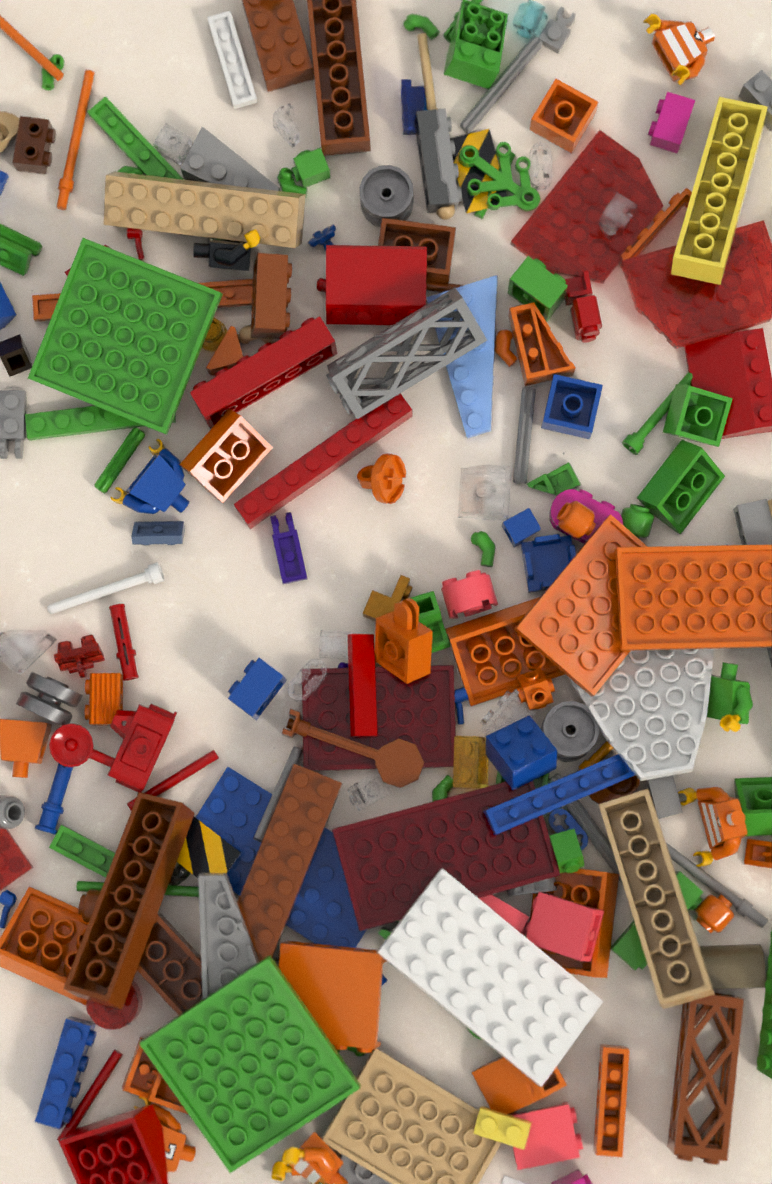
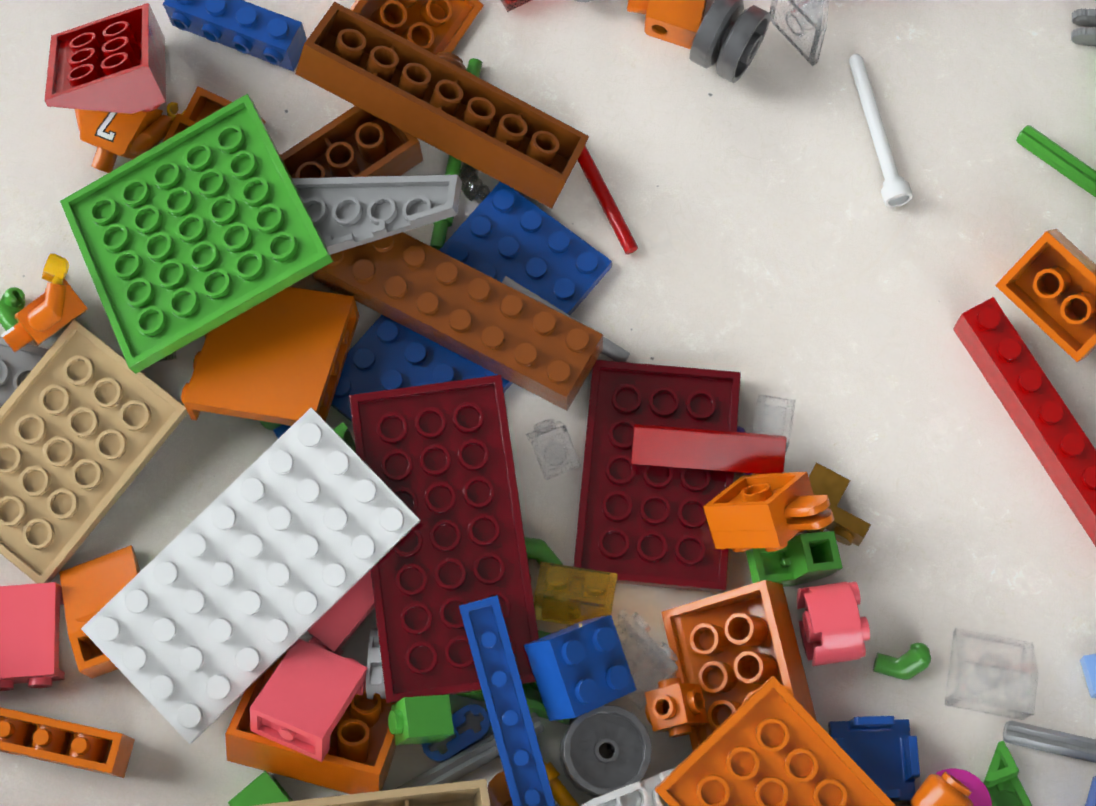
camera: 95 degrees right, 10 degrees down
(52, 808) = (584, 38): blue pin -> none
(80, 658) = (782, 85): clear red hips -> none
(82, 850) = (525, 64): bright green plate -> none
(91, 1093) = (204, 57): red bar -> none
(105, 697) = (723, 113): orange brick -> none
(114, 1018) = (304, 101): clear red brick -> none
(129, 671) = (801, 144): red pin -> none
(141, 745) = (647, 143): red piece -> none
(156, 485) = (1026, 202): blue torso -> none
(158, 533) = (955, 200): sand blue plate -> none
(206, 851) = (495, 214): sticker -> none
(256, 688) = (717, 303): blue brick -> none
(288, 551) = (918, 374): dark purple hinge -> none
(312, 684) = (730, 369): clear beam -> none
(384, 478) = (1022, 522): orange tile -> none
(396, 762) = (589, 488): dark orange piece -> none
(460, 696) = (677, 595): blue hand -> none
(502, 1127) = (40, 572): light yellow plate -> none
(520, 527) = (934, 719): blue panel -> none

